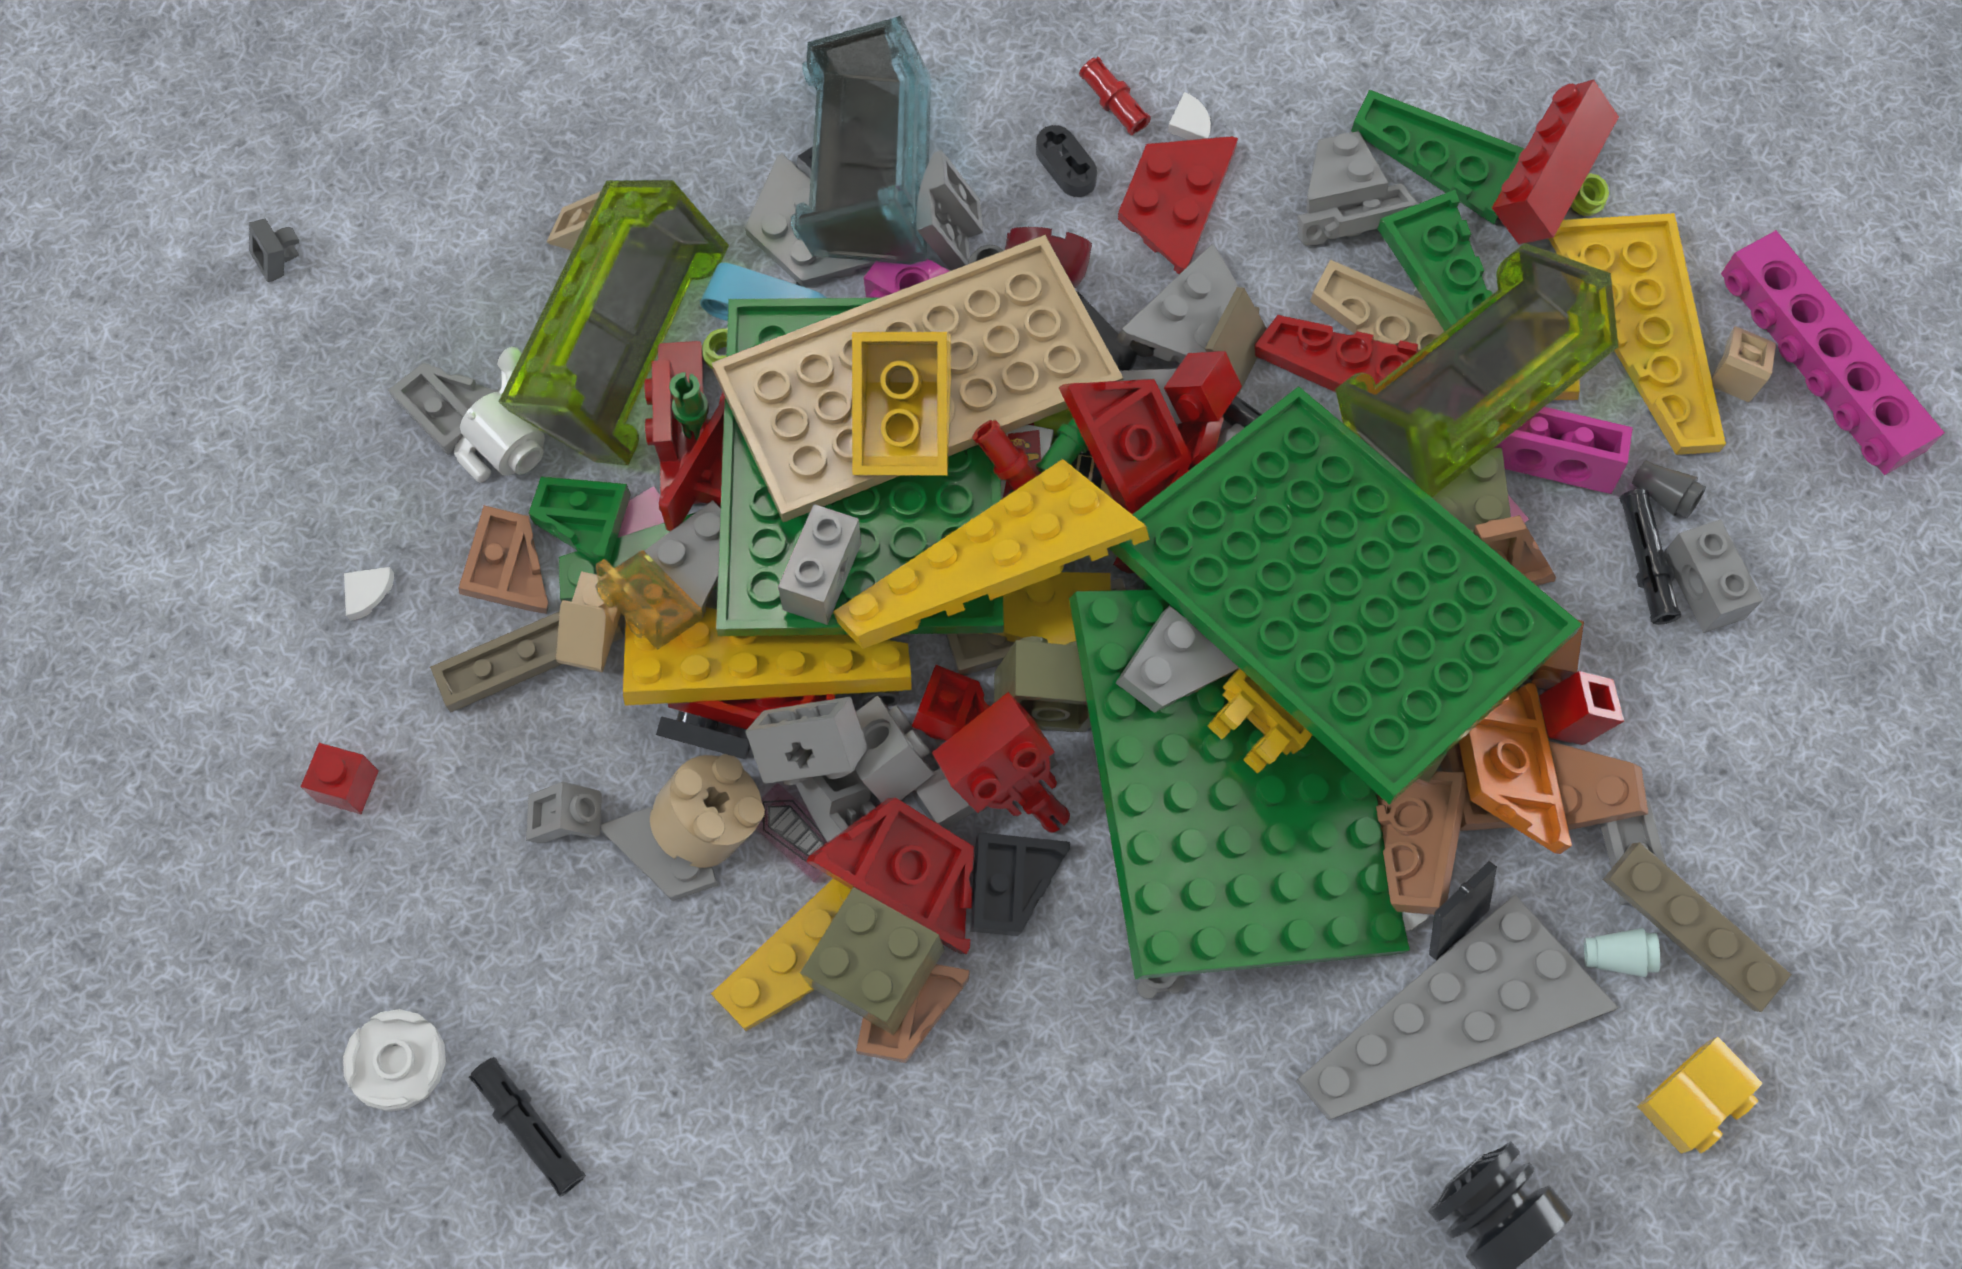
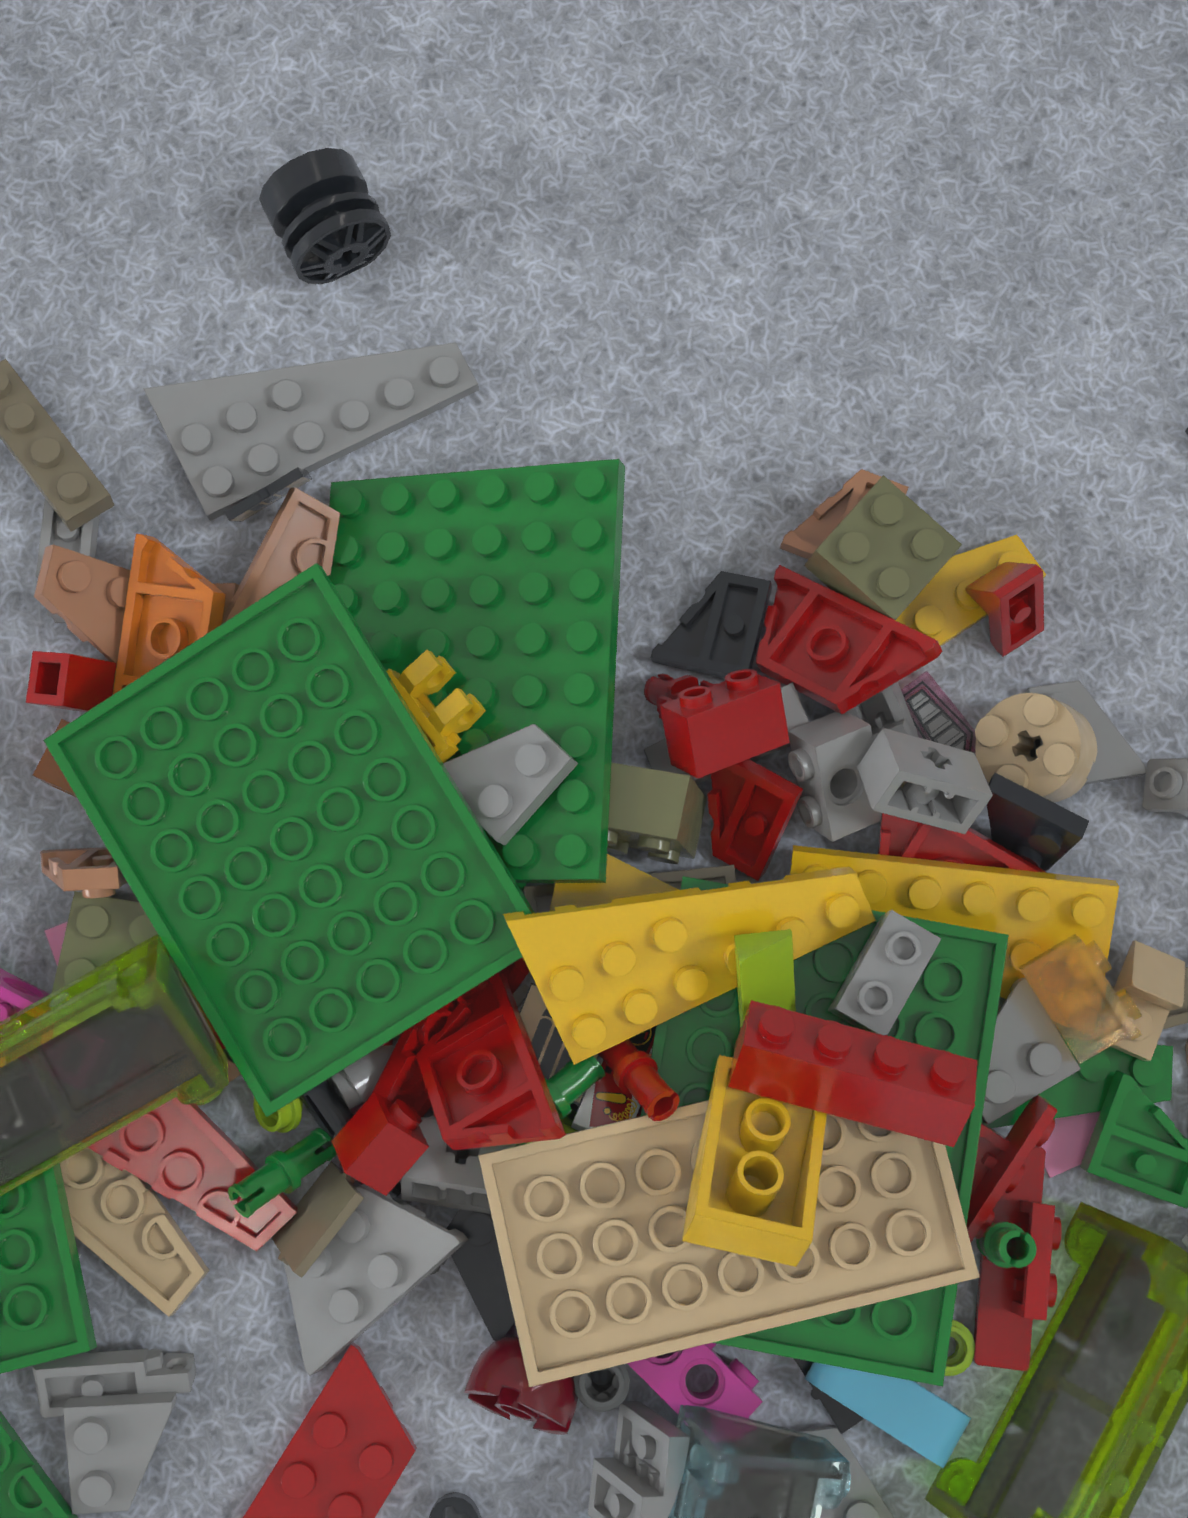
camera: 170 degrees left, 10 degrees up
(749, 950) = (1014, 601): none -> red slope
(836, 469) = (853, 1073): none -> red brick
(920, 533) = (765, 970): none -> lime slope
(1274, 365) = (282, 1172): none -> green pin
(1624, 952) = (117, 438): light aqua cone -> none
(1701, 1097) = (95, 292): yellow brick -> none

